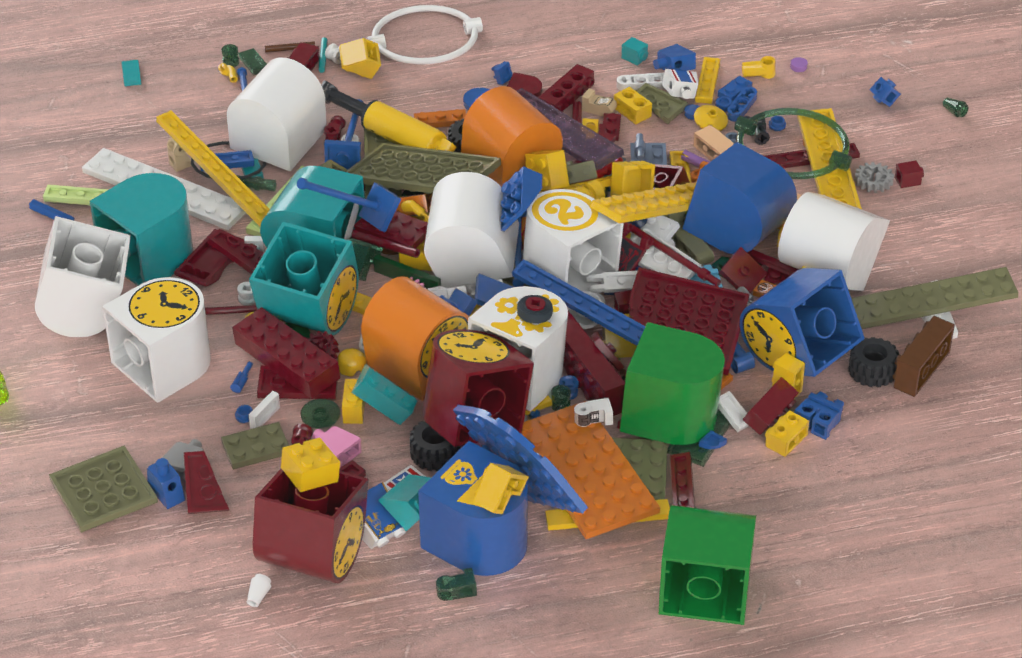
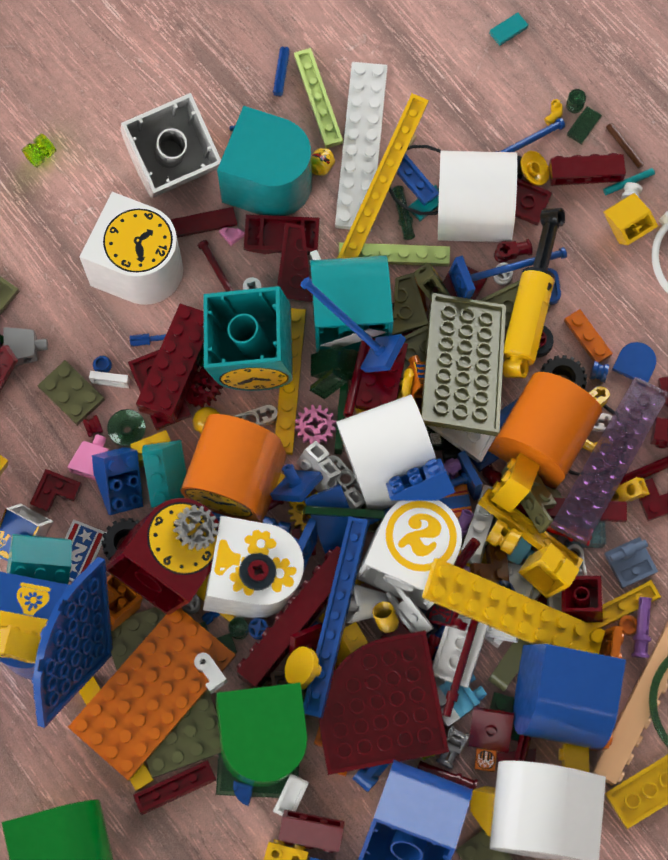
camera: 65 degrees right, 30 degrees up
(368, 424) = (118, 479): none -> blue slope
(375, 266) = (328, 383): none -> clear green tile
(470, 331) = (195, 516): none -> light grey gear
(503, 279) = (343, 512): none -> dark green tile
(611, 292) = (382, 610): none -> yellow piece
(624, 341) = (302, 667): none -> yellow tile
(791, 370) = (354, 832): yellow brick -> none

